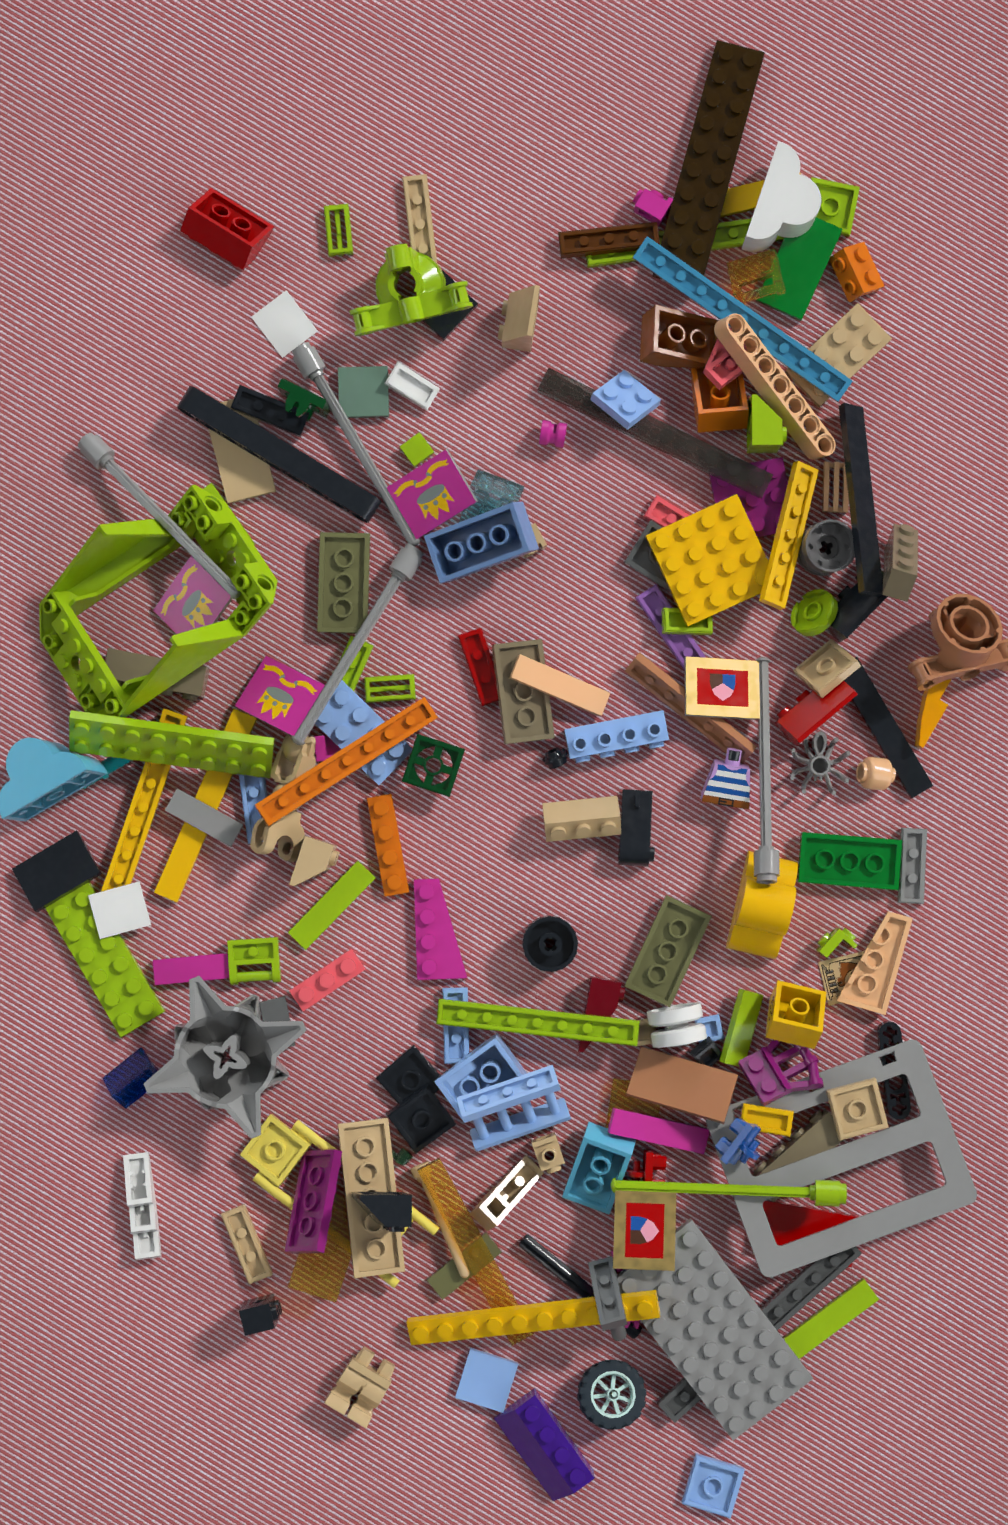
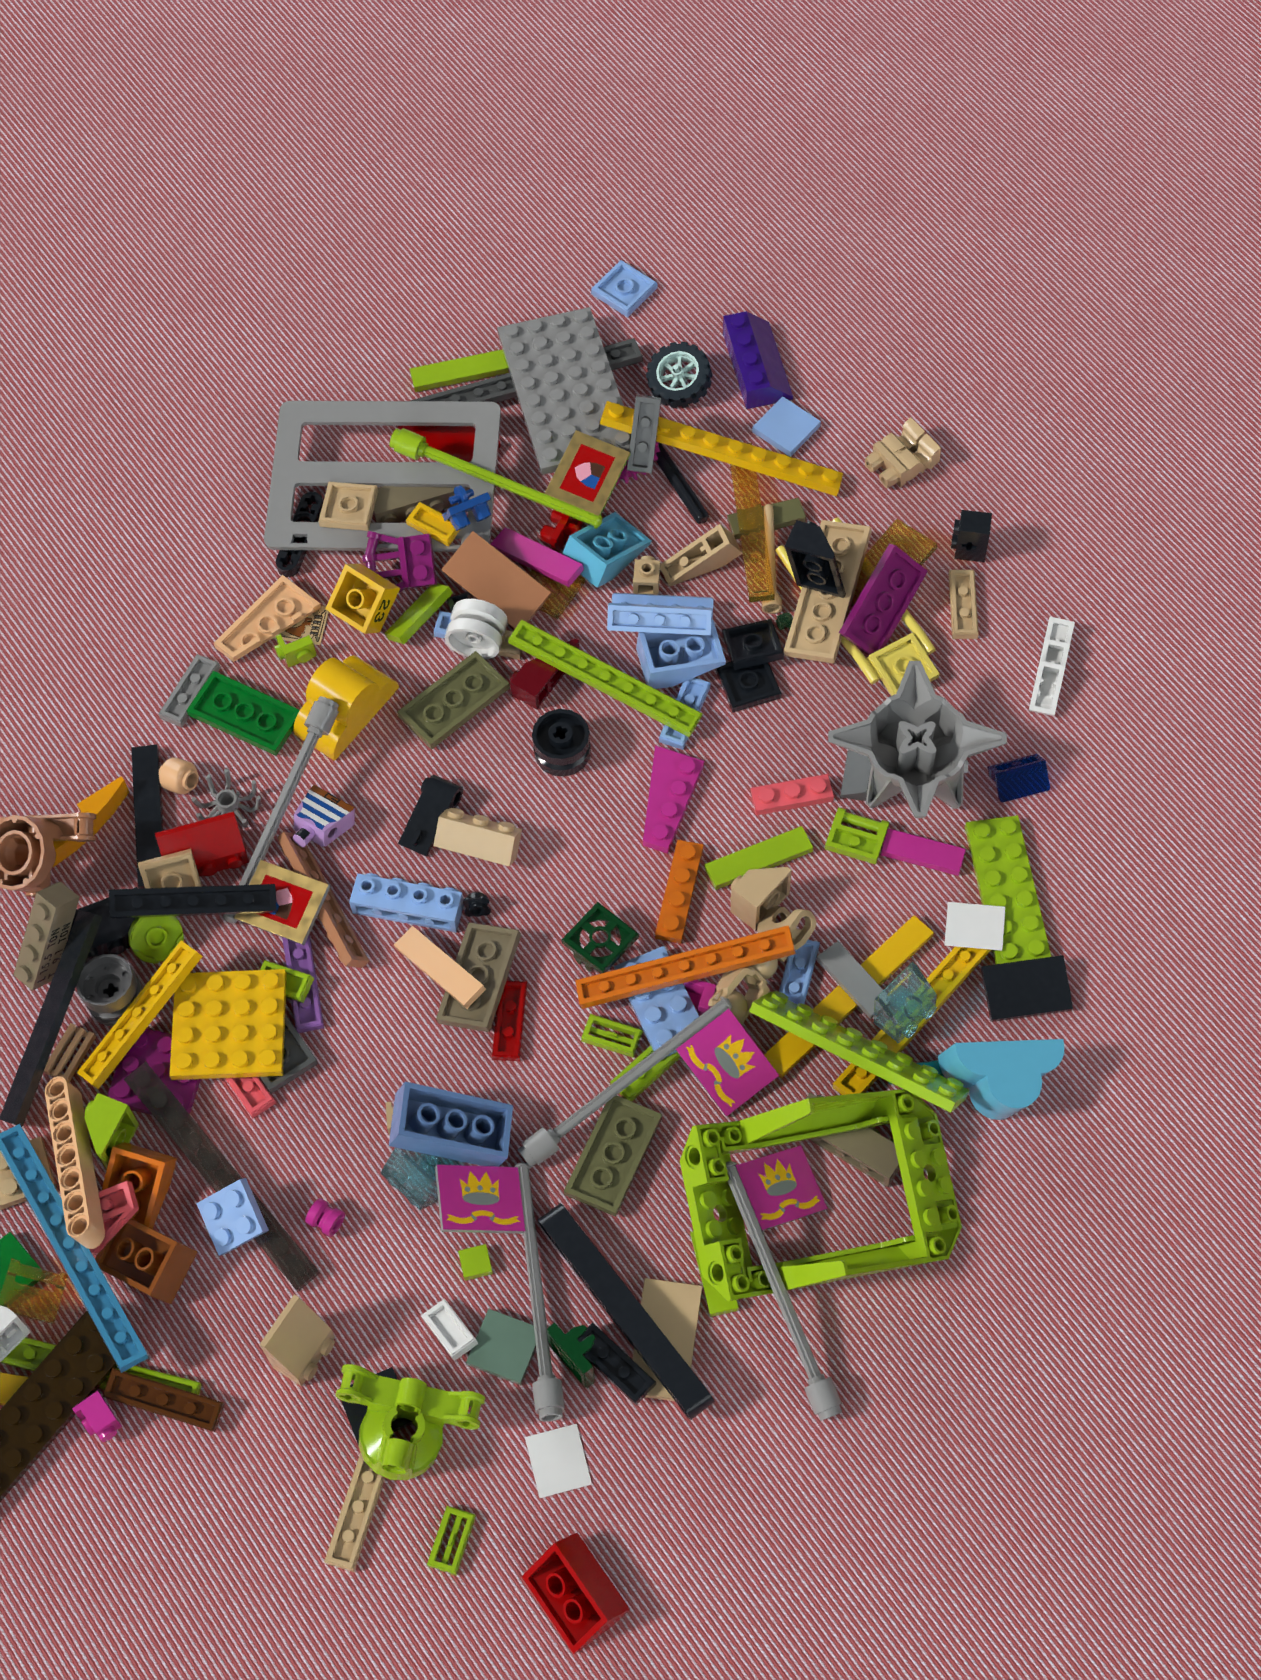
camera: 150 degrees left, 25 degrees down
(147, 803) = (904, 1004): none -> clear light blue slope
(793, 647) = (192, 901): none -> black plate

